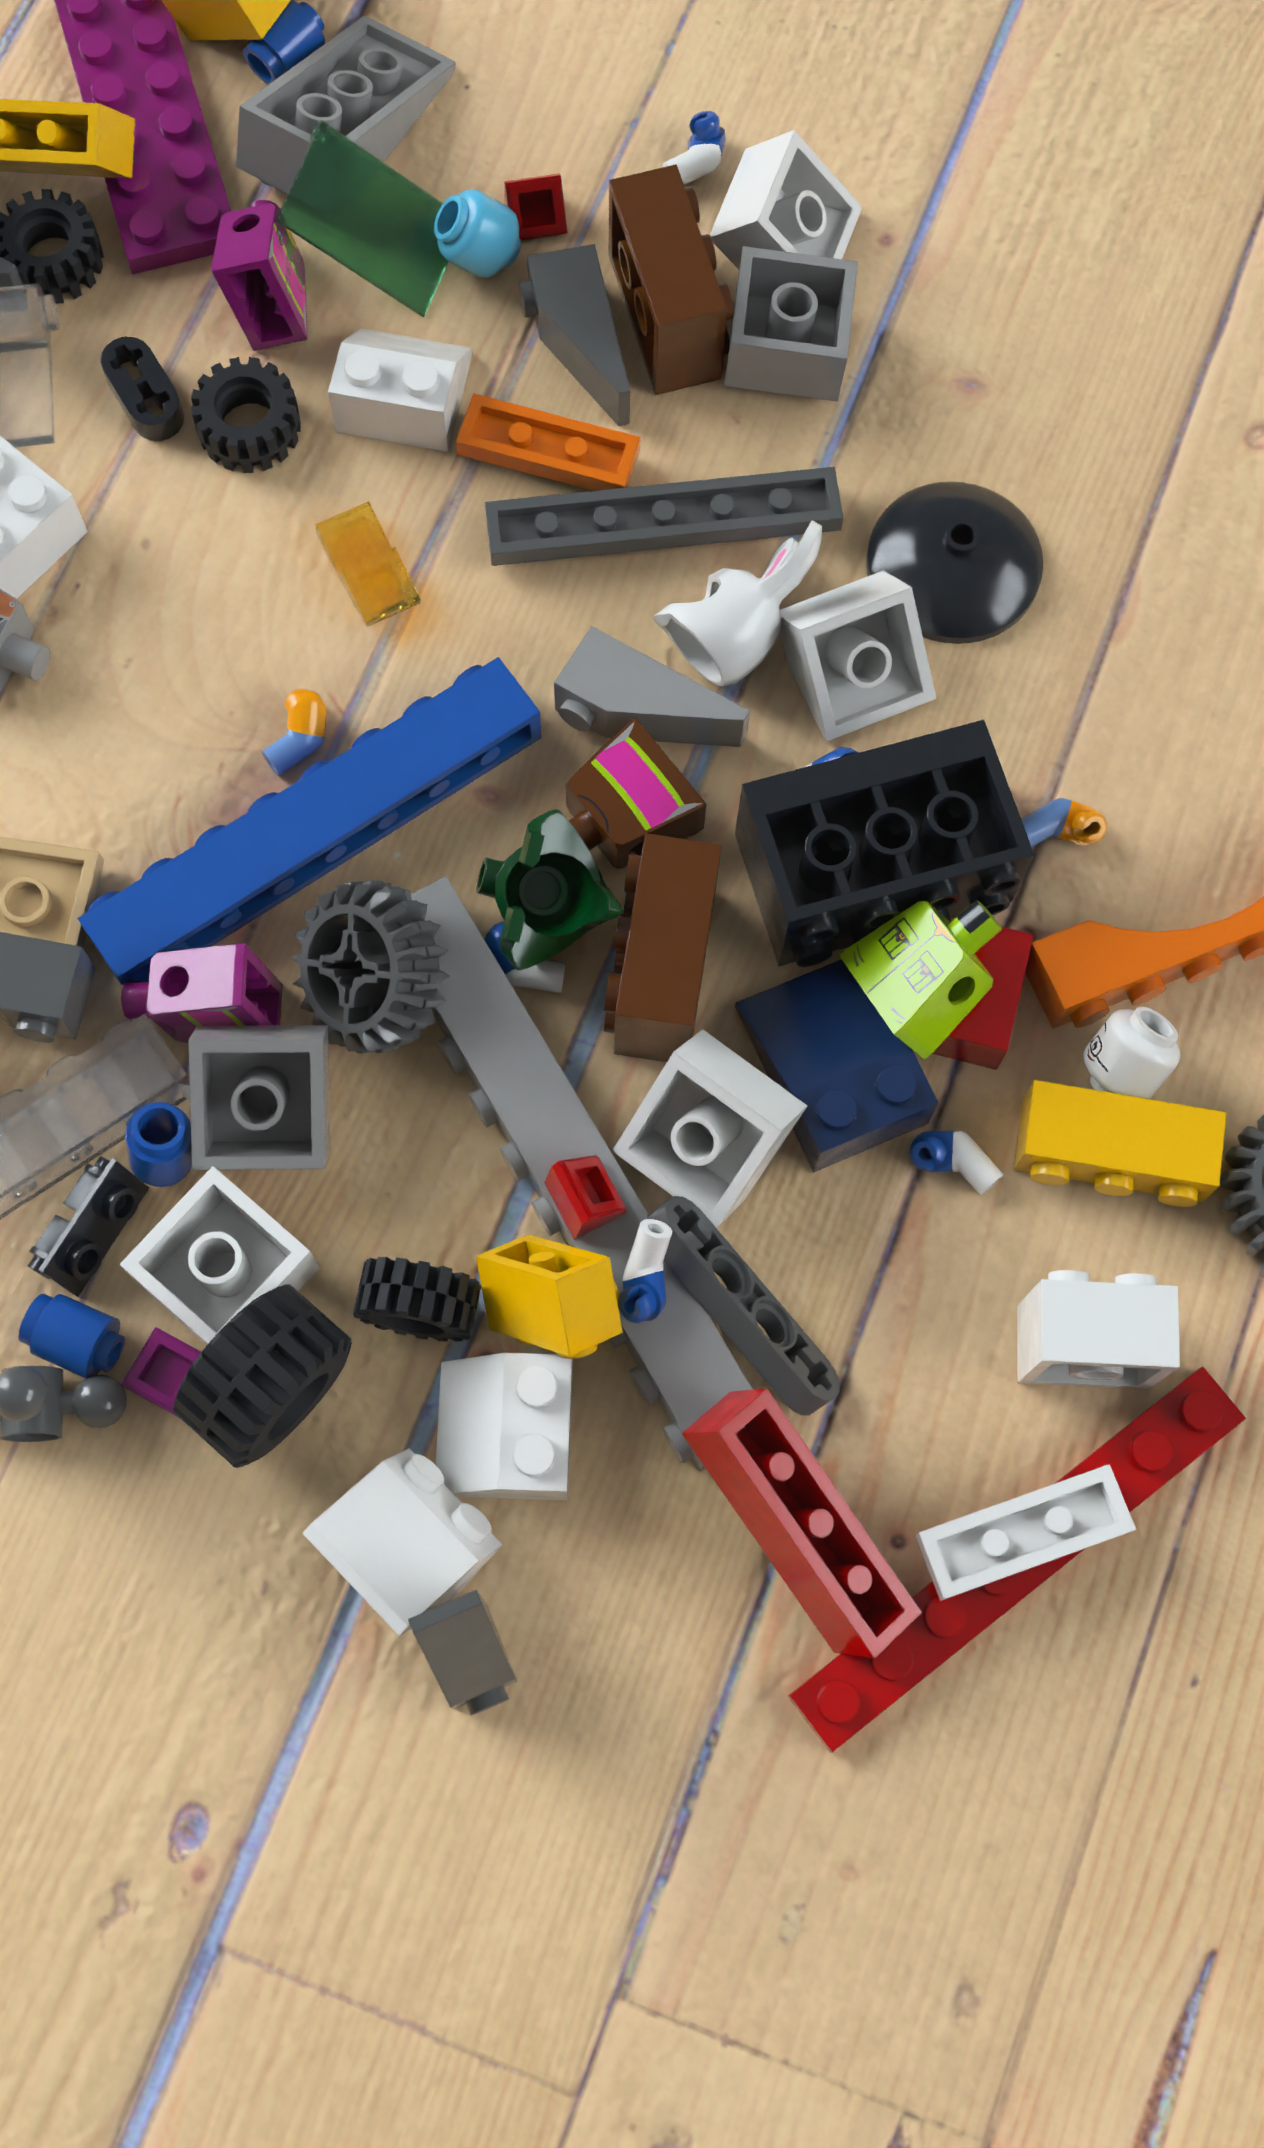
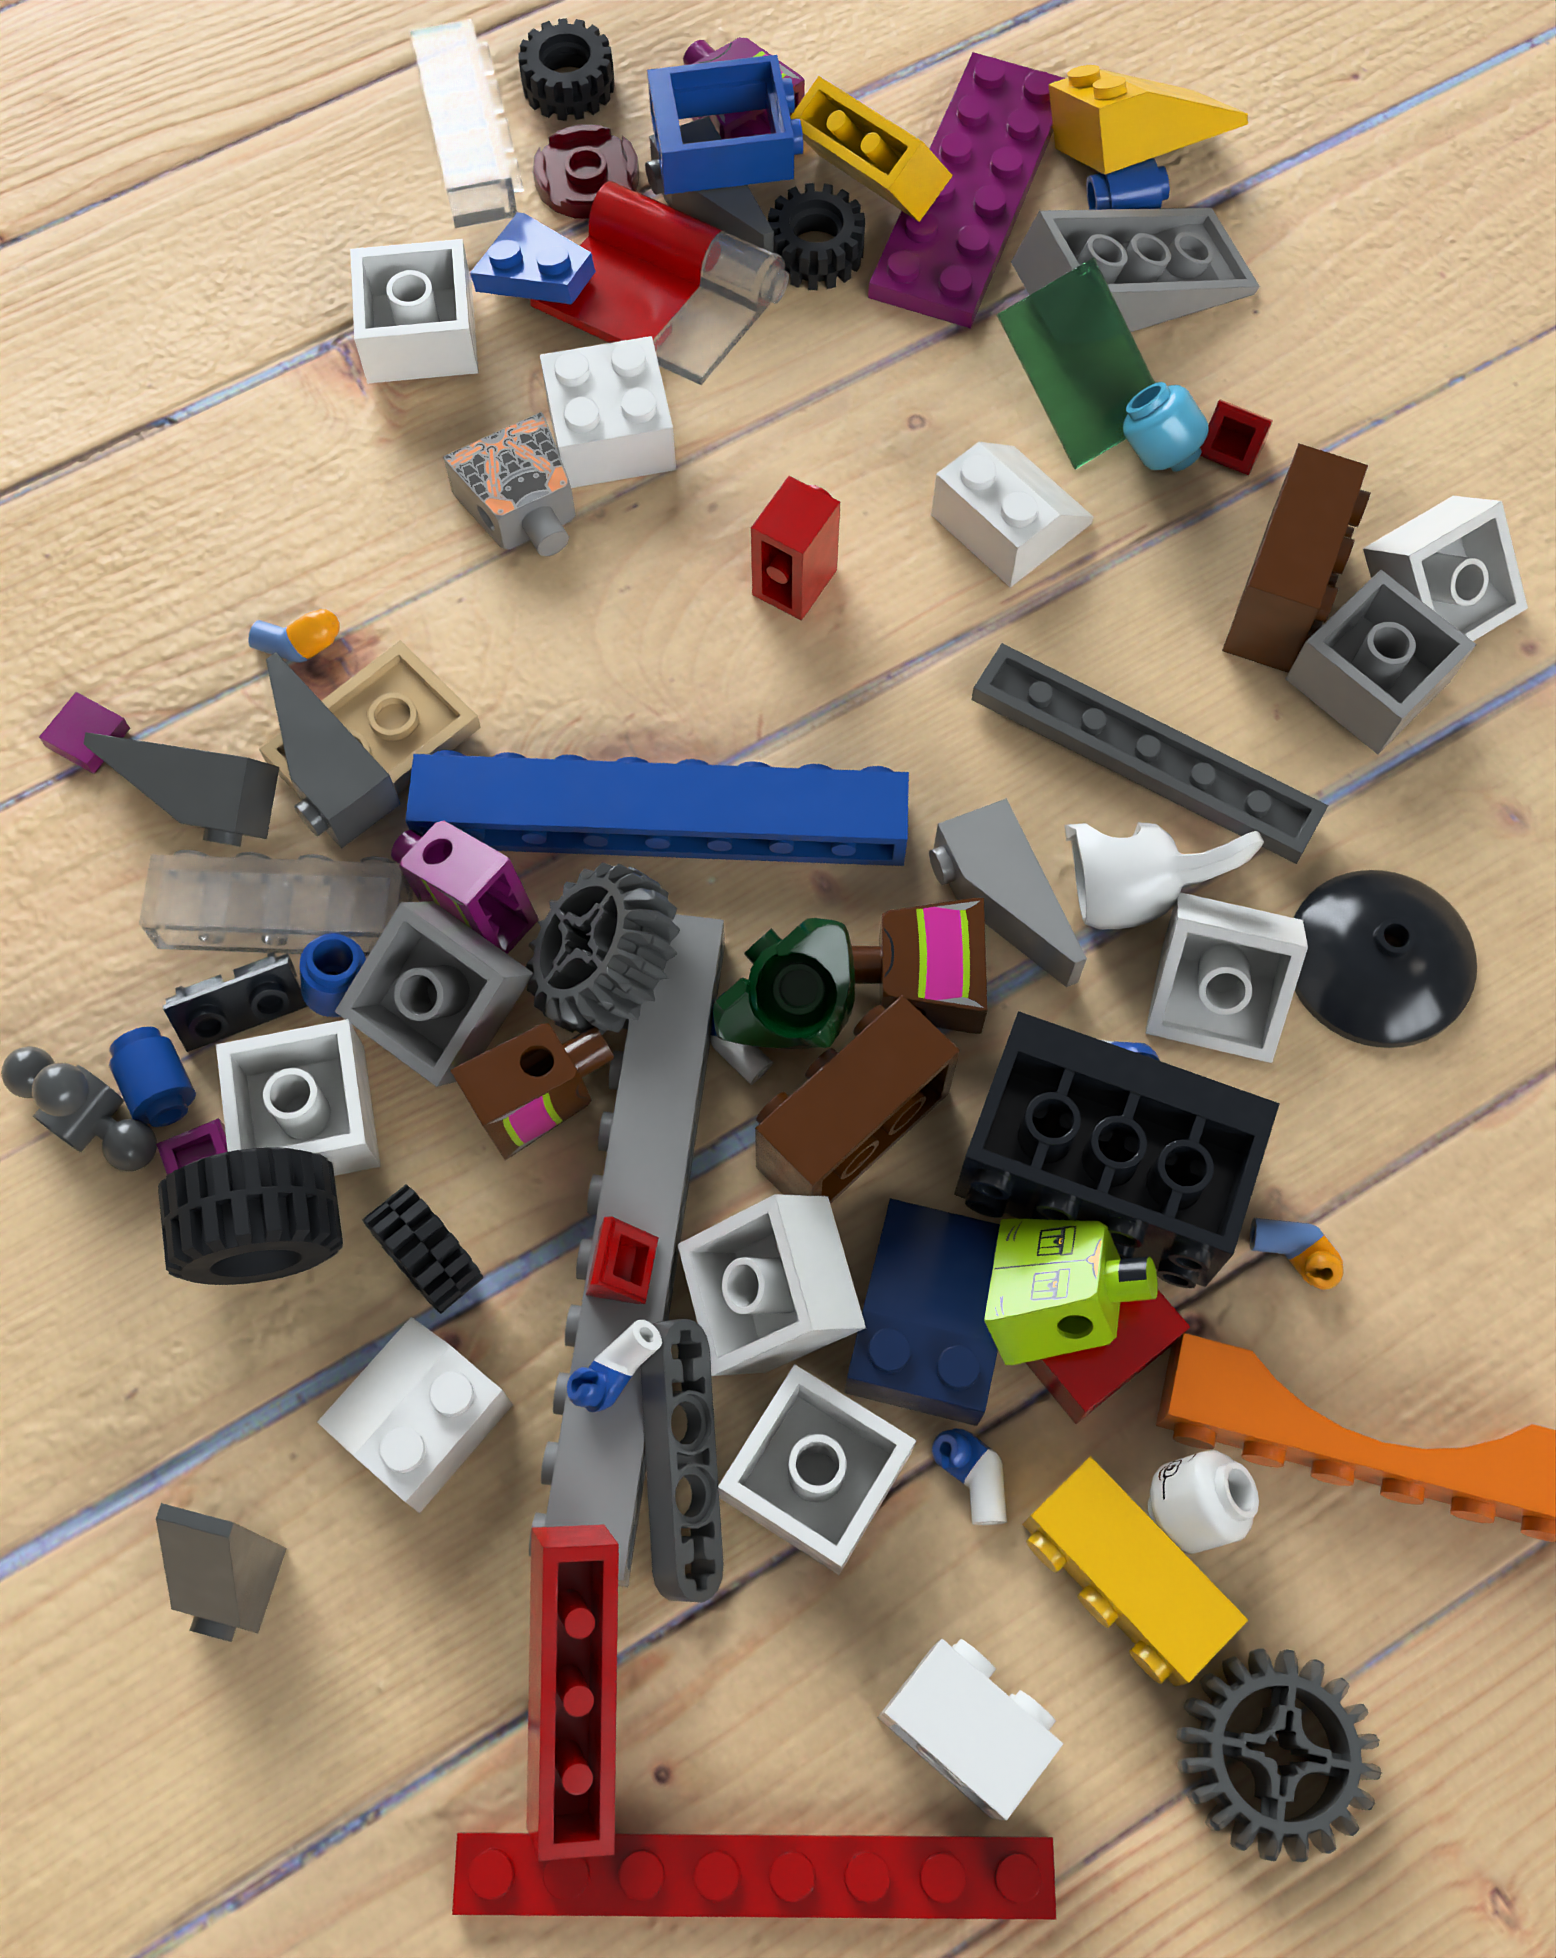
camera: 40 degrees right, 5 degrees down
(152, 384) = (812, 387): black beam -> none
(239, 386) = (872, 429): black tyre -> none
(258, 530) = (795, 547): none -> red brick
(260, 259) = (959, 354): magenta torso -> none
(304, 731) = (713, 731): arm -> none
(367, 564) = (870, 633): clear yellow slope -> none
(393, 1136) = (531, 1084): none -> reddish brown torso
(404, 1539) = (247, 1439): white slope -> none
(547, 445) = (1093, 632): orange plate -> none
(550, 1295) = (524, 1327): yellow brick -> none
(577, 324) = (1195, 546): dark grey slope -> none
(704, 148) = (1417, 479): arm -> none
(847, 1237) = (816, 1469): none -> white brick
(1025, 1532) = (763, 1858): white plate -> none

